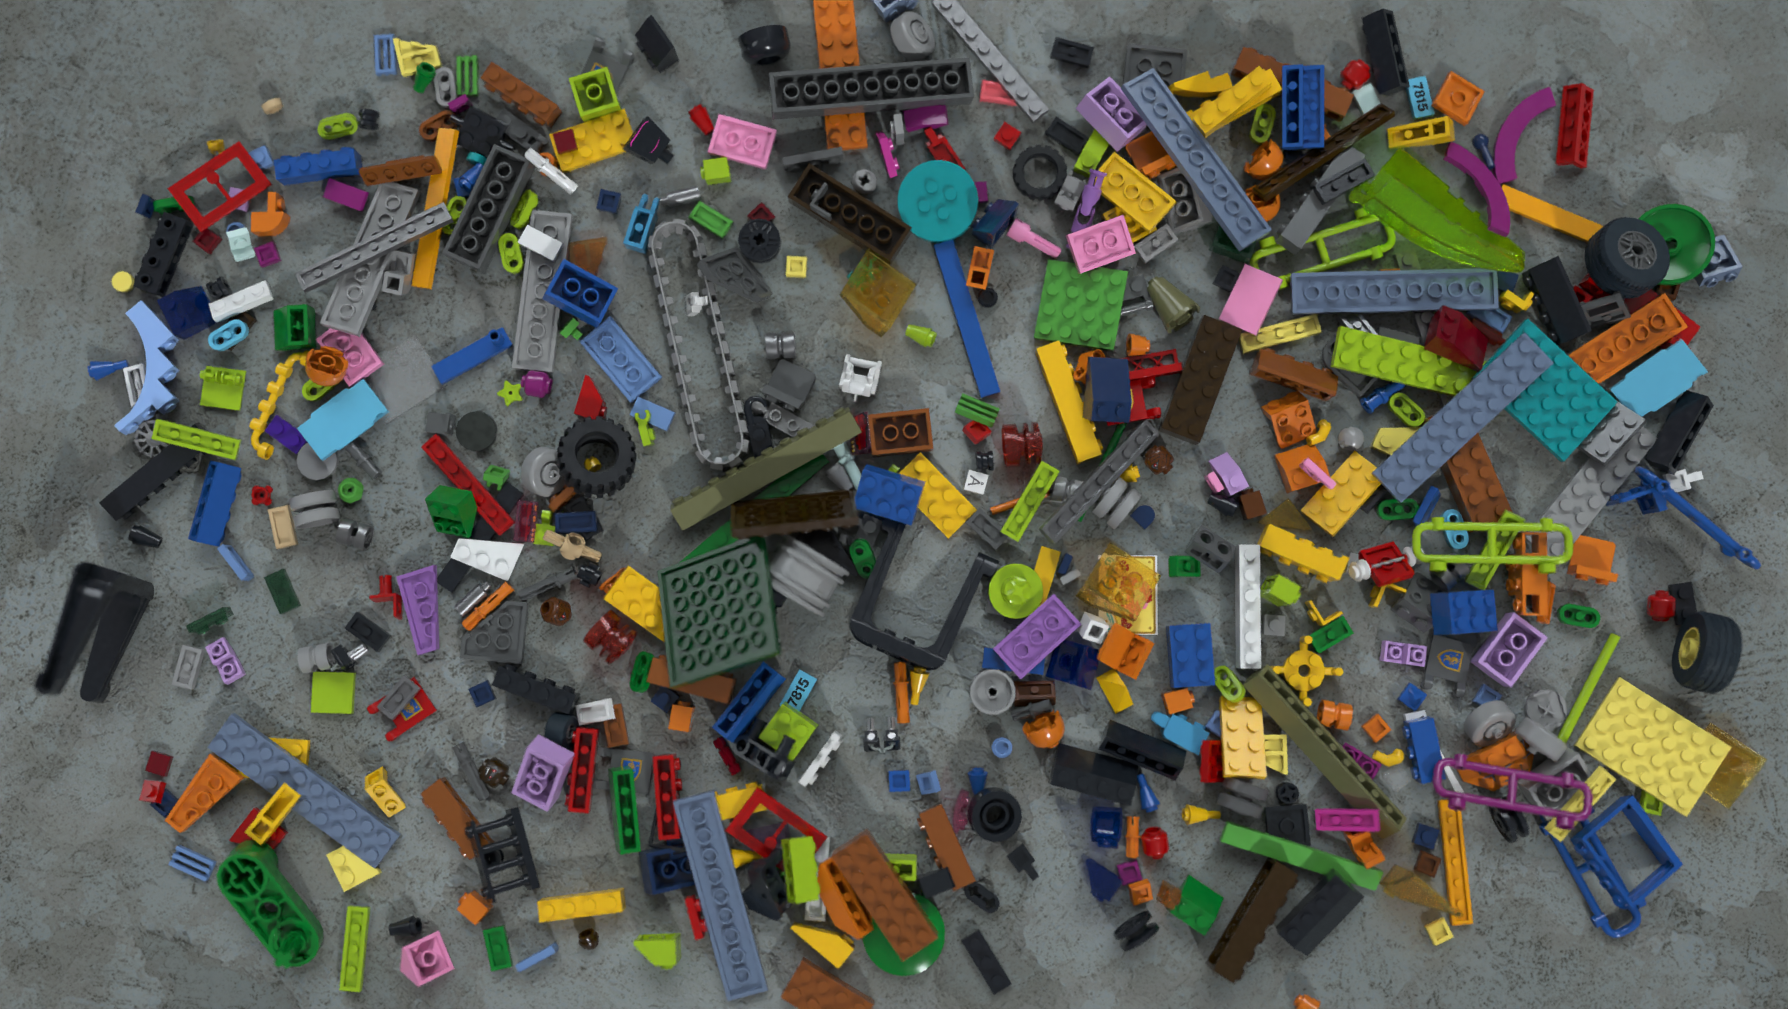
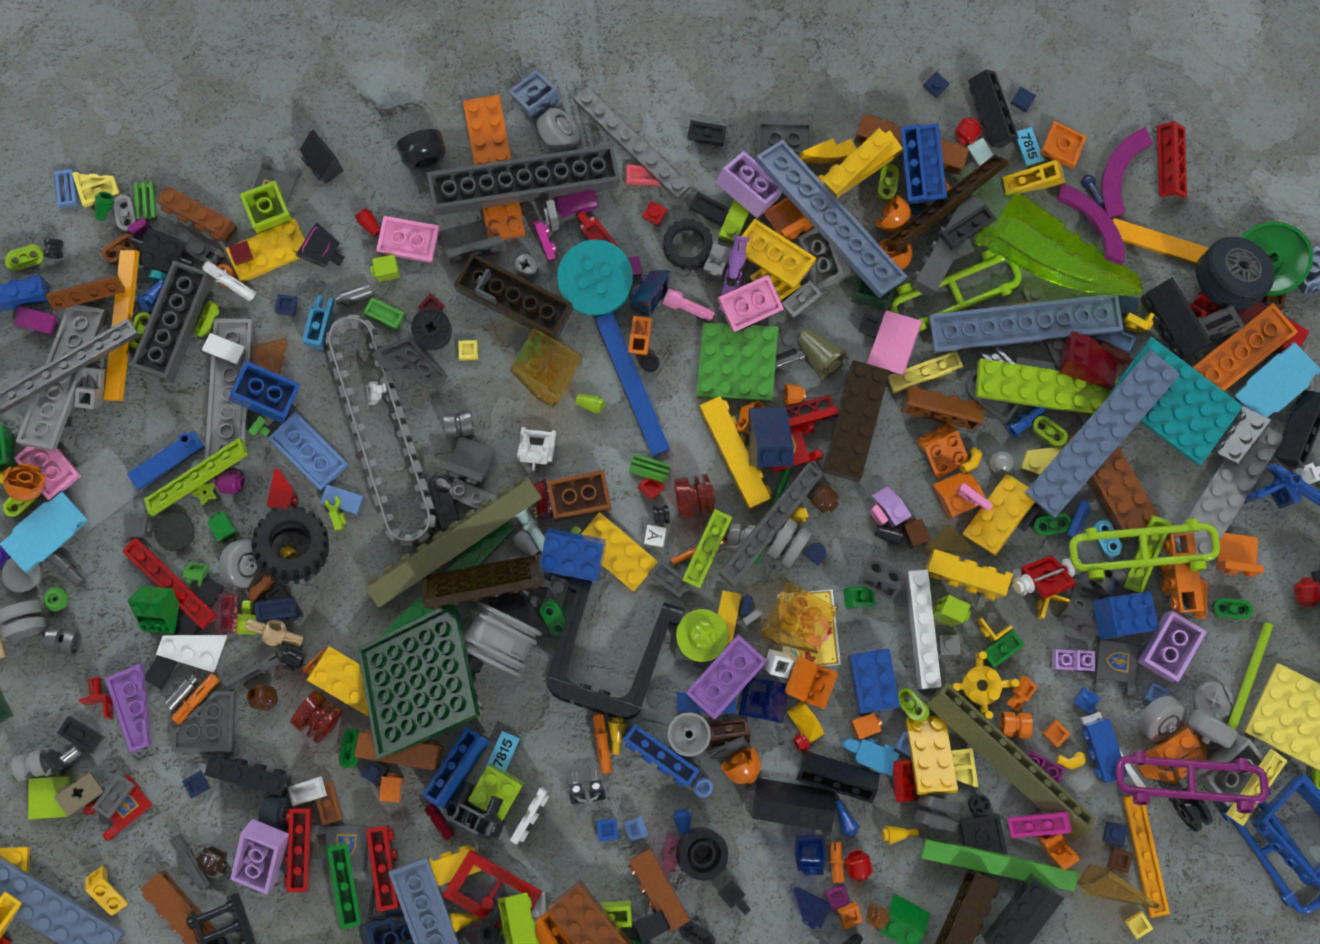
camera: 15 degrees left, 5 degrees down
(376, 690) = (70, 803): none -> dark tan brick
(503, 376) = (196, 476): none -> lime plate
(511, 254) = (196, 362): lime plate -> none
(526, 431) = (222, 527): none -> green brick
(961, 710) = (661, 755): none -> blue brick
(1108, 711) = (801, 742): none -> red plate
(1326, 19) = (936, 84): none -> dark blue plate
(1345, 682) = (1022, 693): none -> orange plate
(1419, 44) = (1023, 99): none -> dark blue tile

